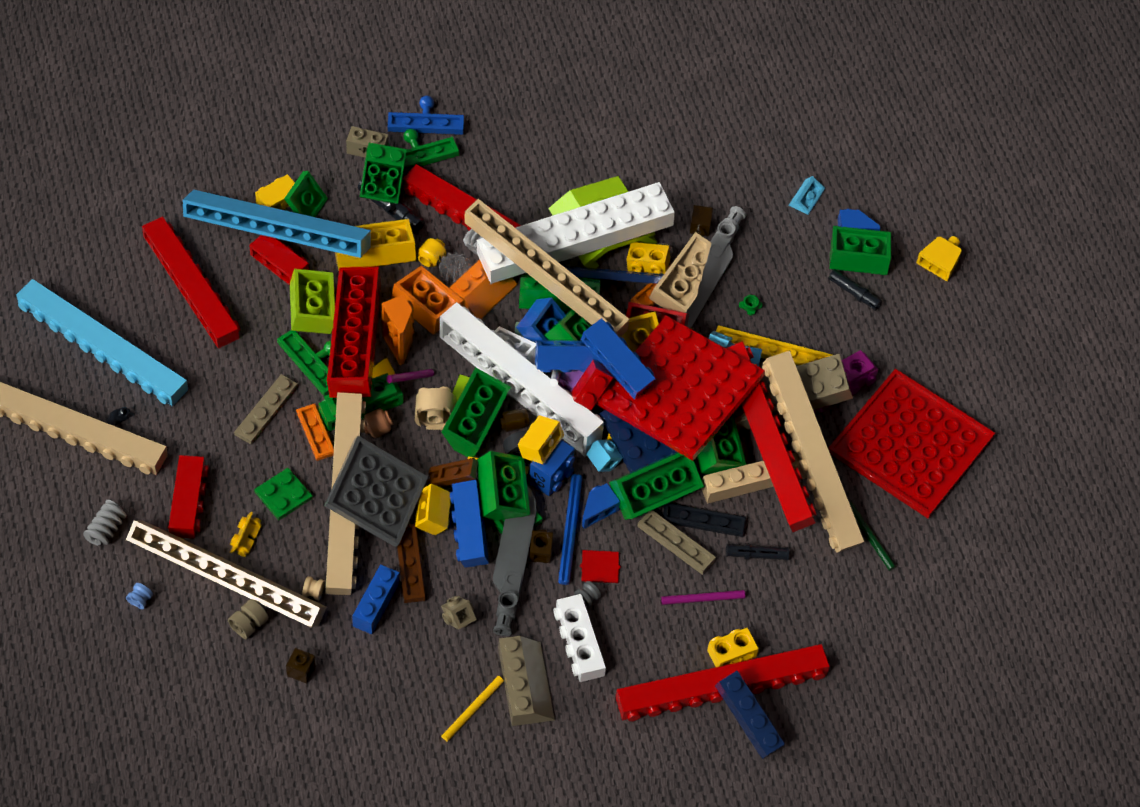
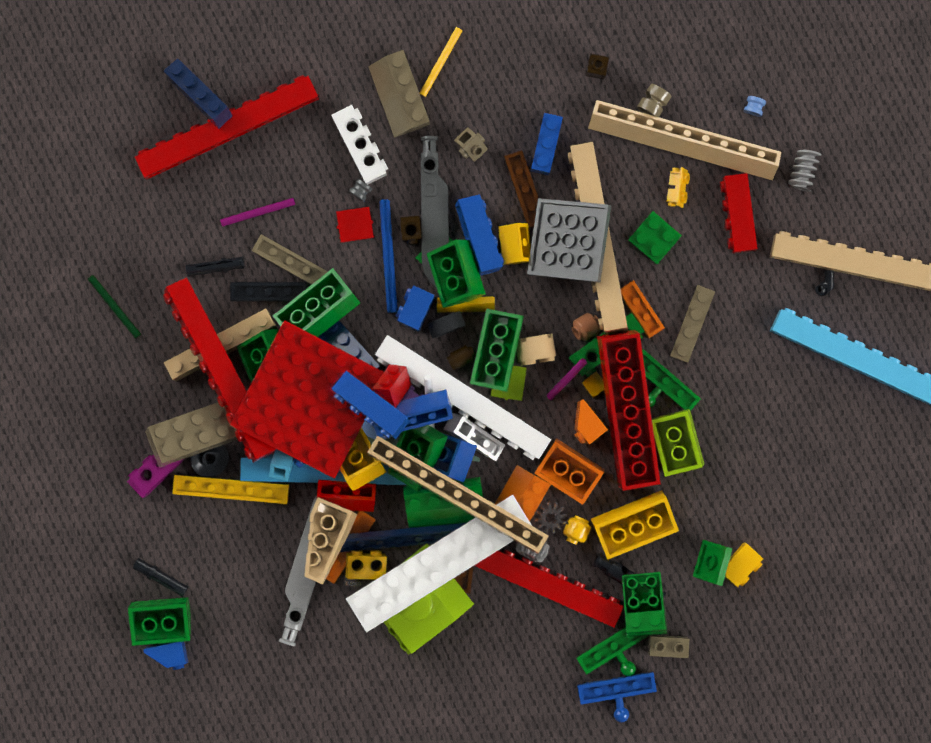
camera: 175 degrees right, 30 degrees up
(191, 282) = (799, 446): red brick -> none
(277, 223) = (732, 520): dark azure brick -> none
(277, 257) = (721, 491): red brick -> none
(313, 588) = (604, 145): tan wheel -> none
(453, 472) = (505, 281): reddish brown plate -> none
(540, 439) = (429, 317): yellow brick -> none
(599, 505) = (366, 283): blue slope -> none
(604, 455) = (370, 334): medium azure brick -> none
(701, 220) = (322, 624): dark brown brick -> none
(734, 652) = (220, 157): yellow brick -> none
(750, 299) = (259, 533): green plate -> none
(807, 195) = (222, 684): medium azure slope -> none
(812, 451) = (176, 364): tan brick -> none
(911, 443) = (87, 413): red plate -> none
(940, 256) = (79, 633): yellow torso -> none

